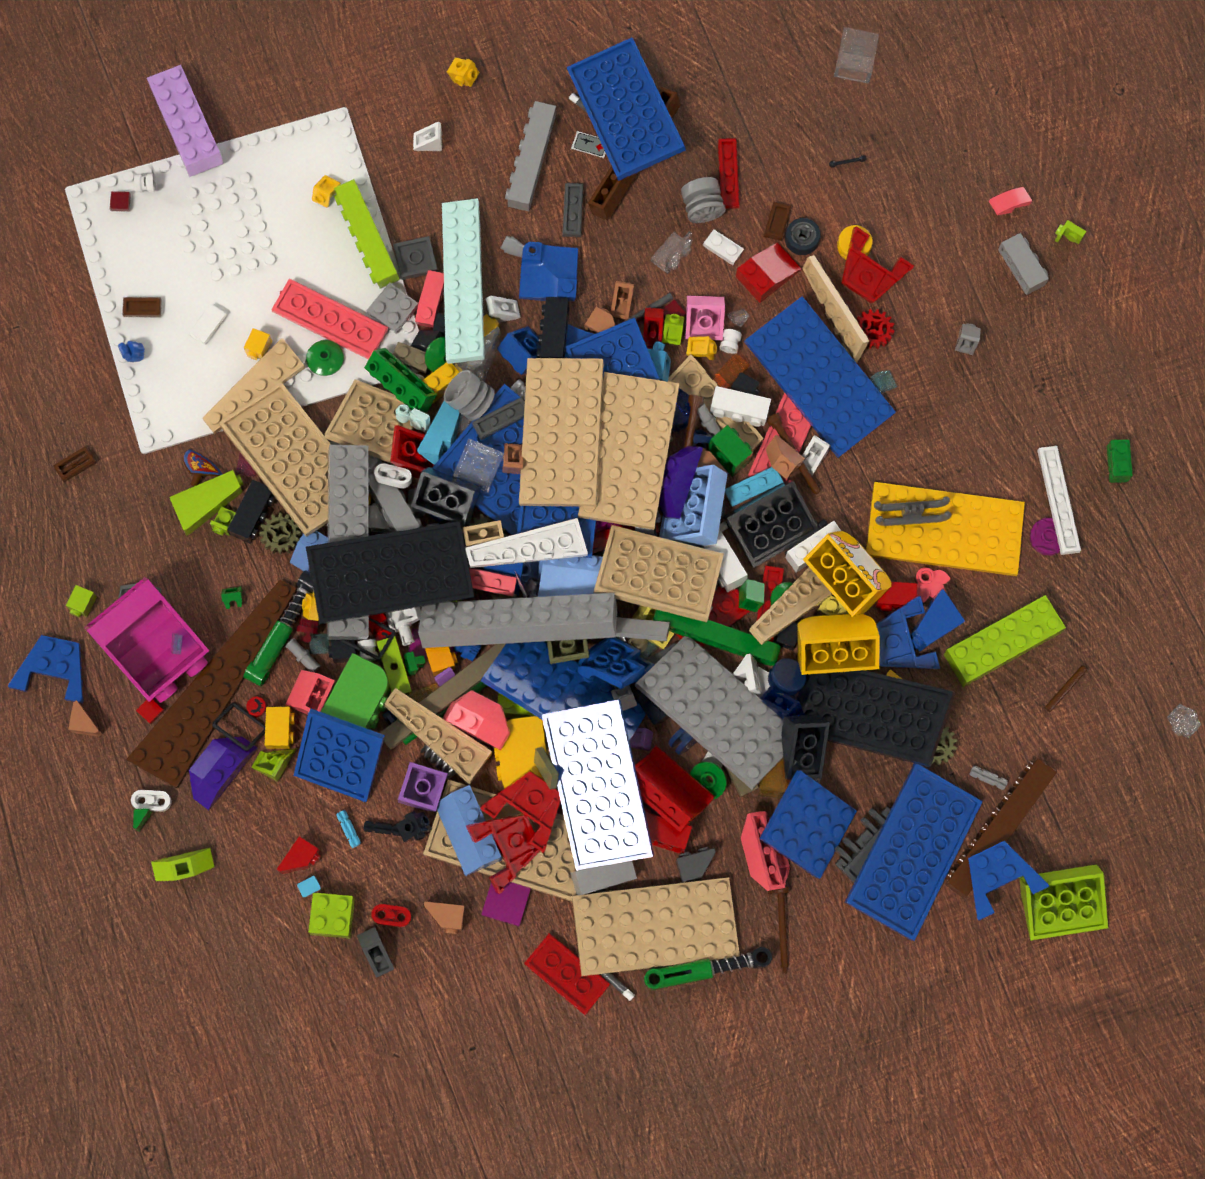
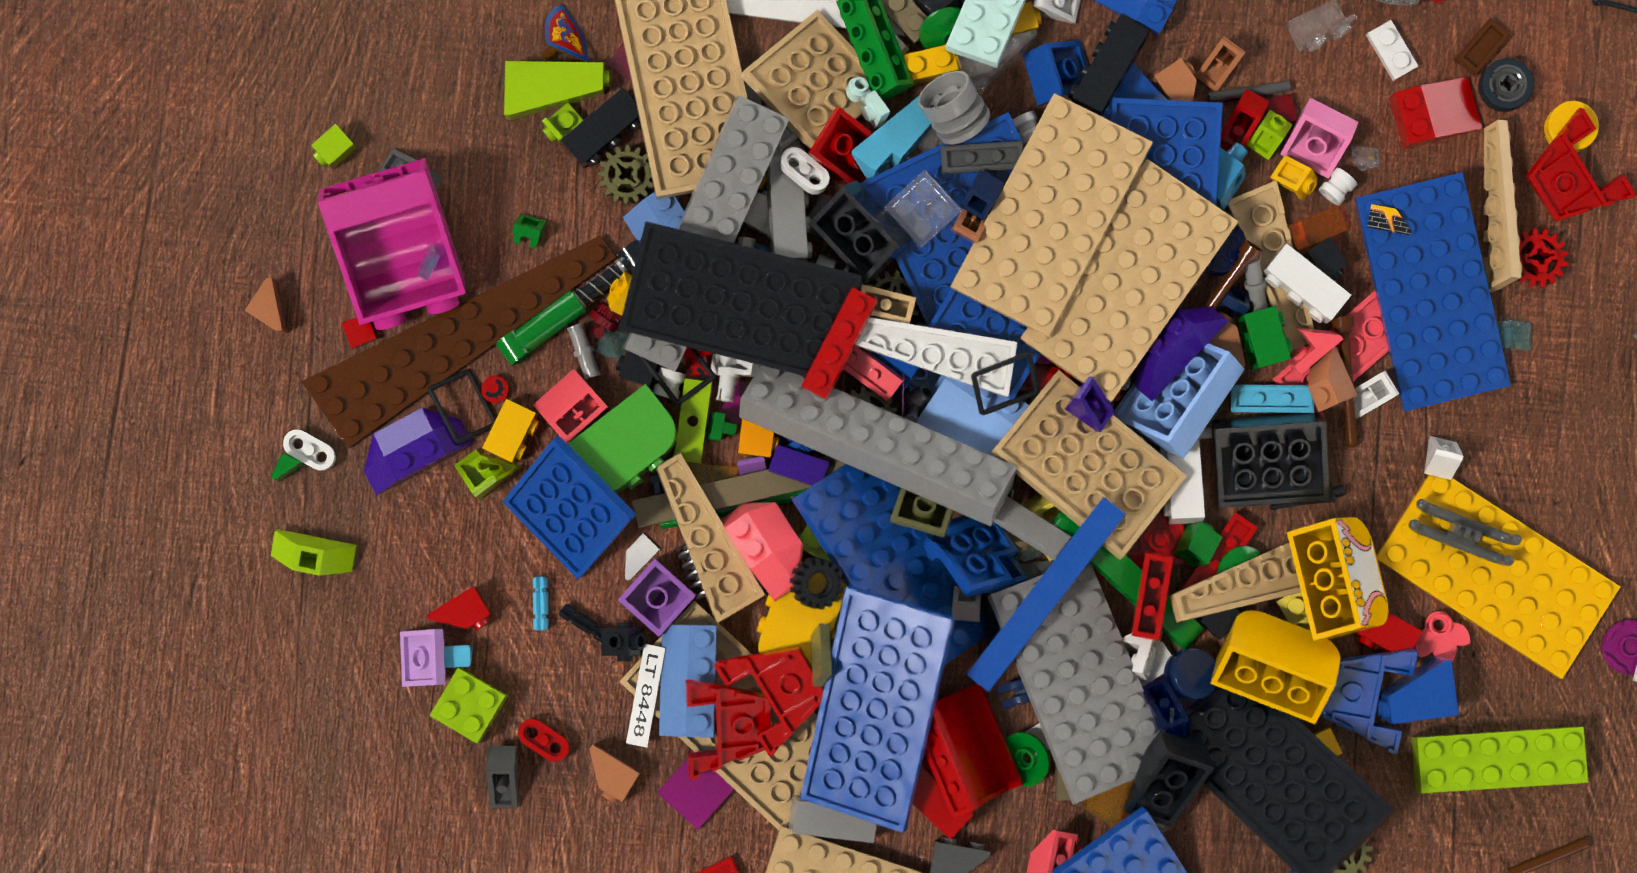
camera: 30 degrees right, 10 degrees up
(54, 659) = (268, 207): blue wing -> none
(286, 898) = (422, 657): none -> lavender plate
(398, 769) = (638, 555): none -> white sticker
(444, 854) = (645, 695): none -> white sticker
(465, 569) = (839, 343): none -> red plate
(474, 662) = (798, 466): none -> dark purple tile
(512, 439) = (982, 194): none -> dark blue brick
(529, 716) = (801, 578): none -> black tyre
(572, 537) = (1028, 355): none -> black piece
(641, 739) = (963, 663): medium lavender slope -> none
(642, 536) = (1090, 405): none -> dark purple slope
(671, 664) = (1046, 594): none -> blue tile
(738, 635) = (1152, 596): none -> red brick
(765, 439) = (1318, 345): none -> coral slope
(770, 343) = (1387, 220): none -> sticker
(799, 552) = (1300, 516): white brick -> none
(876, 474) = (1442, 458): none -> white slope

